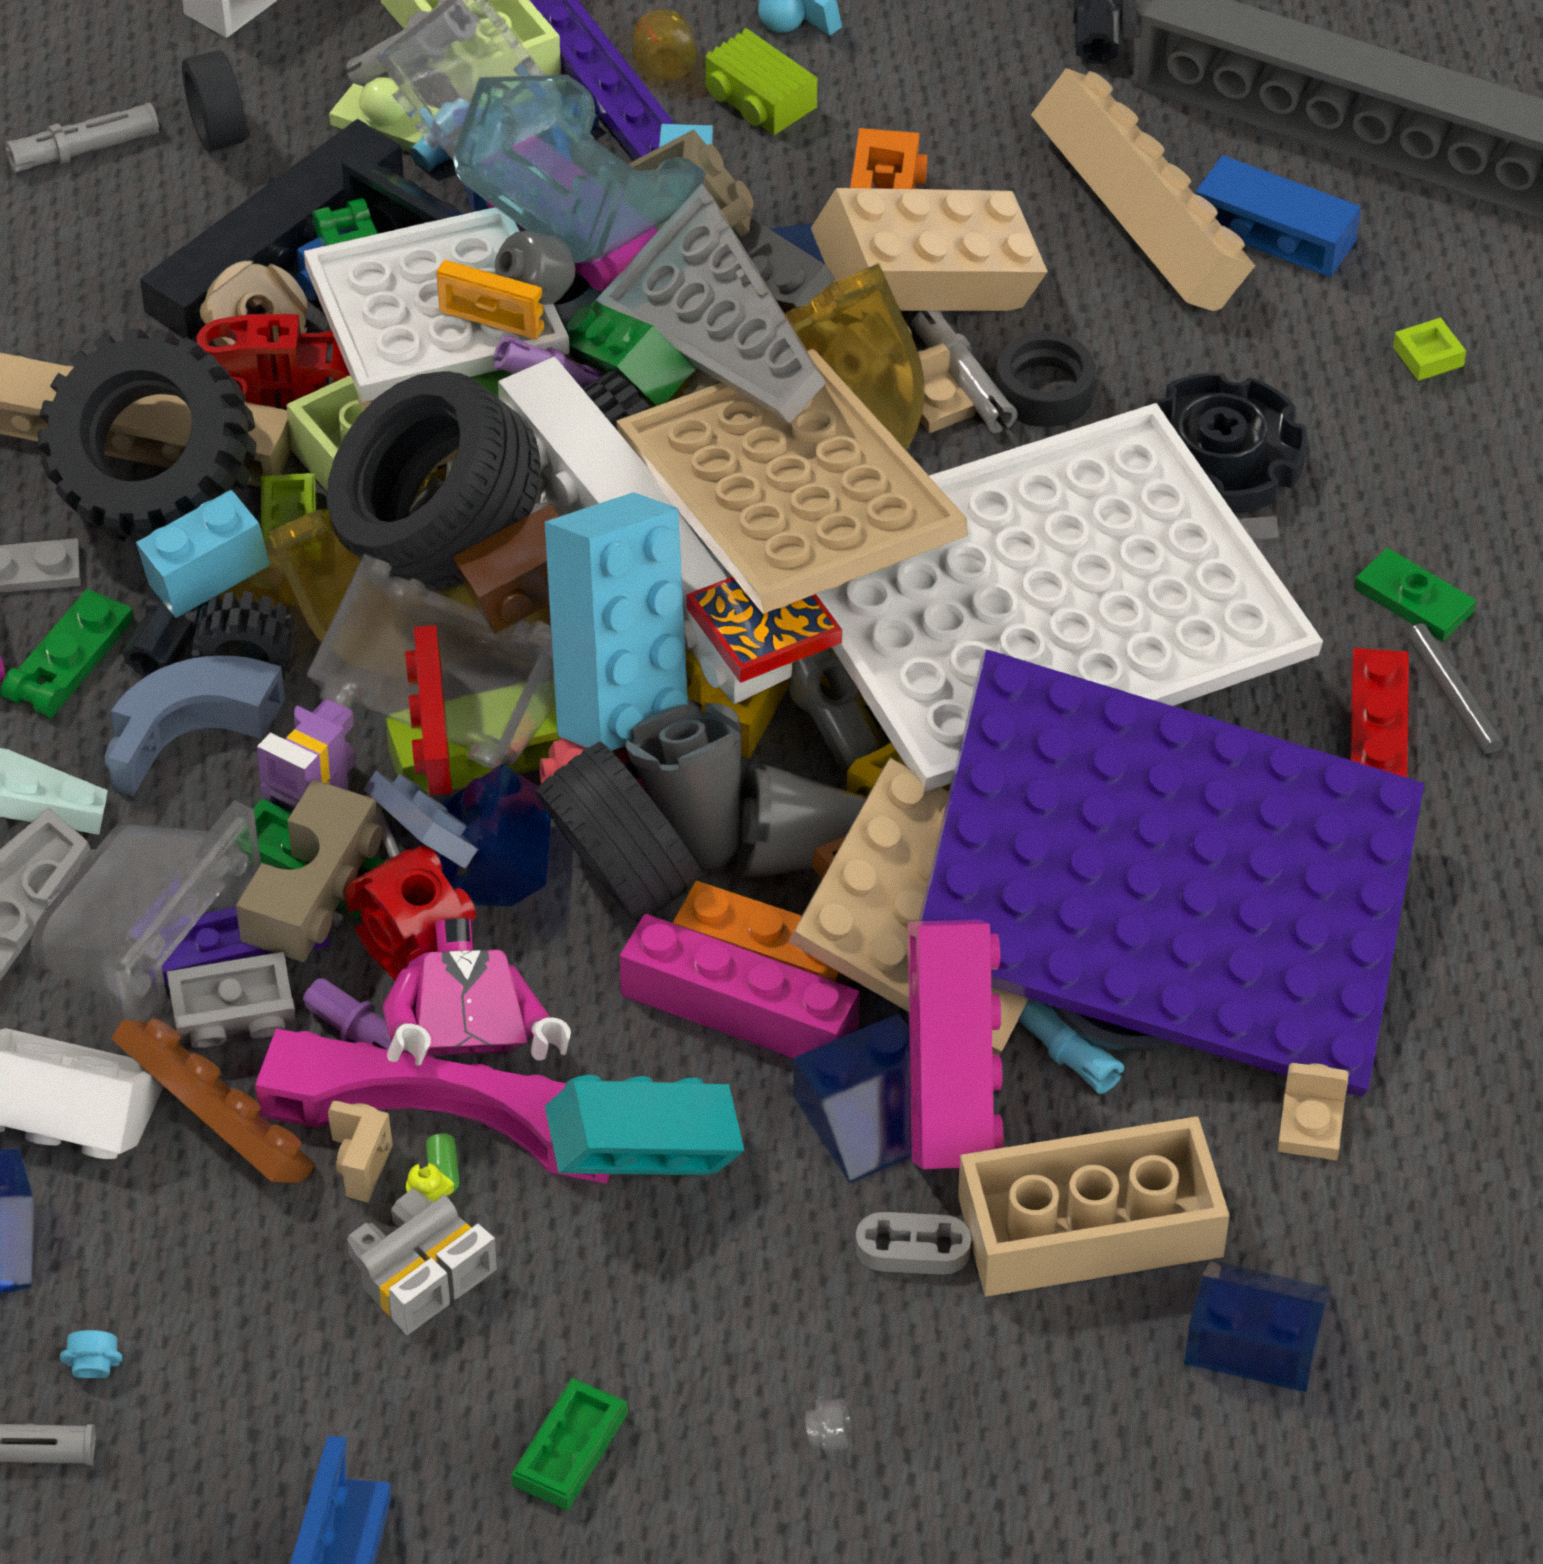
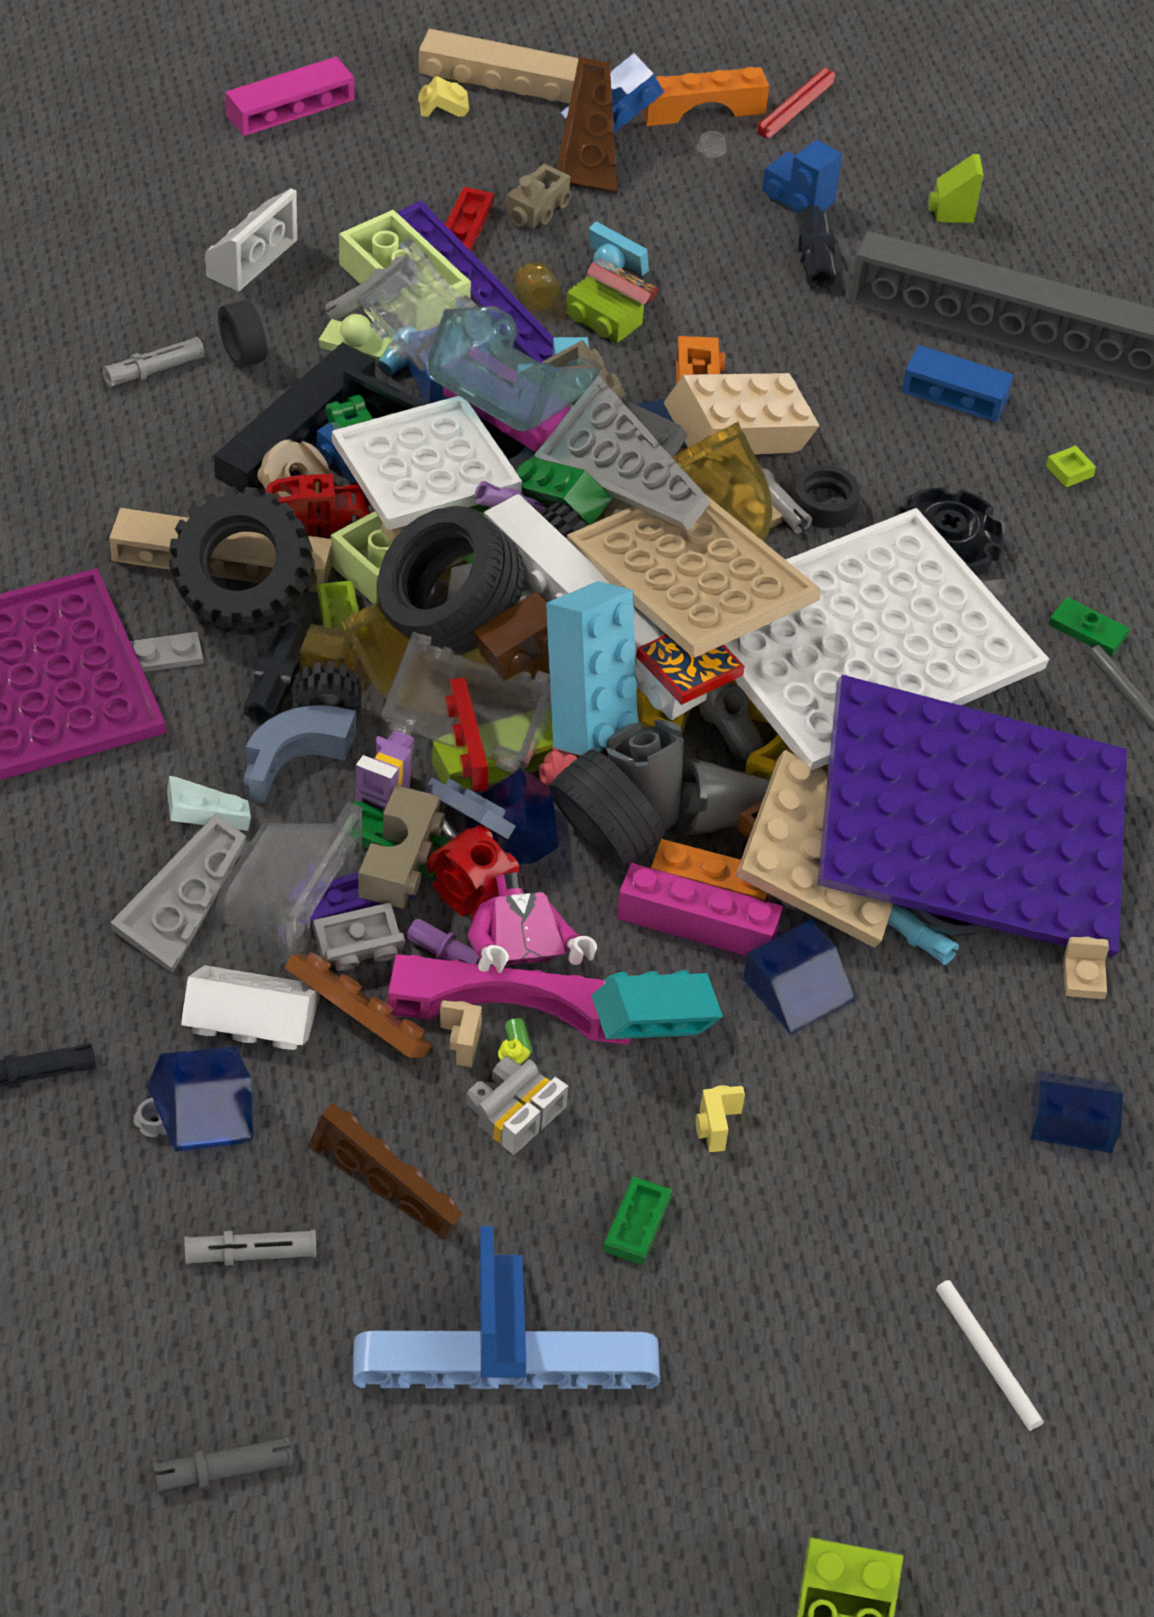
camera: 10 degrees left, 0 degrees up
(68, 653) = (204, 709): green plate -> none
(91, 1353) = (304, 1182): medium azure plate -> none
(203, 553) = (293, 637): medium azure brick -> none
(205, 1348) = (384, 1173): none -> reddish brown wing
(490, 299) = (469, 453): light orange tile -> none
(537, 261) = (495, 435): dark grey head -> none
(715, 1277) = (714, 1106): none -> light yellow bracket
(790, 42) = (622, 281): none -> tile
(829, 1425) = (808, 1196): clear plate -> none
(913, 1243) = (840, 1071): light grey beam -> none
(952, 1041) = (854, 937): dark pink brick -> none
(1092, 1206) = (957, 1039): tan brick -> none
(1143, 189) = (869, 369): tan brick -> none
(1379, 709) = (1080, 701): red plate -> none

